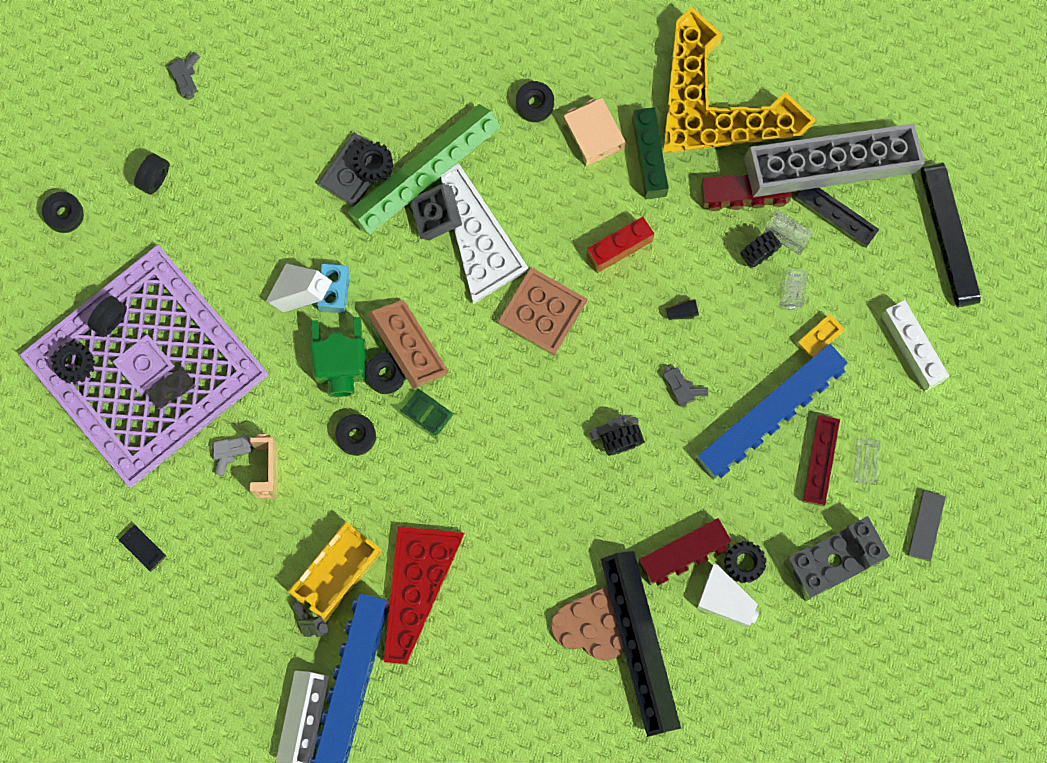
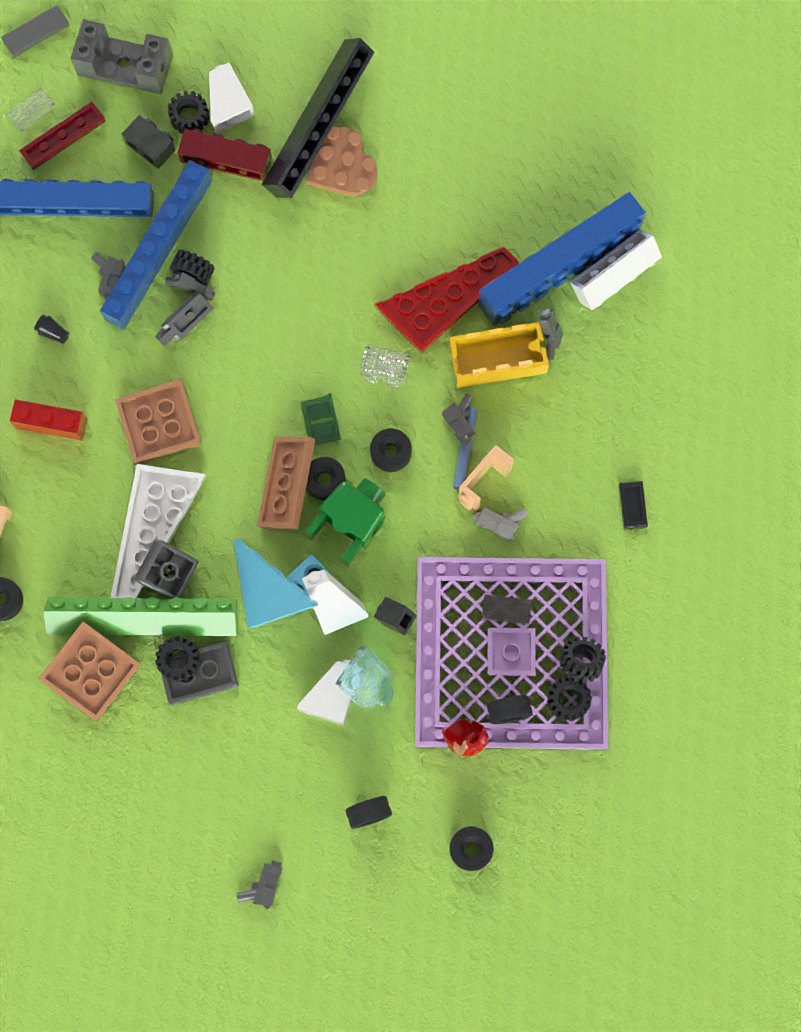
camera: 135 degrees left, 0 degrees up
(83, 407) = (579, 669): none -> black tyre
(123, 273) = (466, 737): none -> red hair
(228, 256) = (367, 679): none -> clear light blue plate
(246, 231) = (326, 698): none -> white slope
(247, 317) = (395, 616): none -> pearl dark grey brick
(302, 484) = (464, 453): none -> medium blue piece
(327, 498) = (456, 419): none -> dark grey piece
(354, 256) = (266, 590): none -> medium azure tile
(414, 493) = (385, 365): none -> clear brick
(426, 104) = (89, 671): none -> nougat plate
(594, 399) = (184, 318): none -> dark grey hinge
(668, 437) = (156, 245): none -> blue brick
(752, 511) = (149, 141): none -> pearl dark grey brick

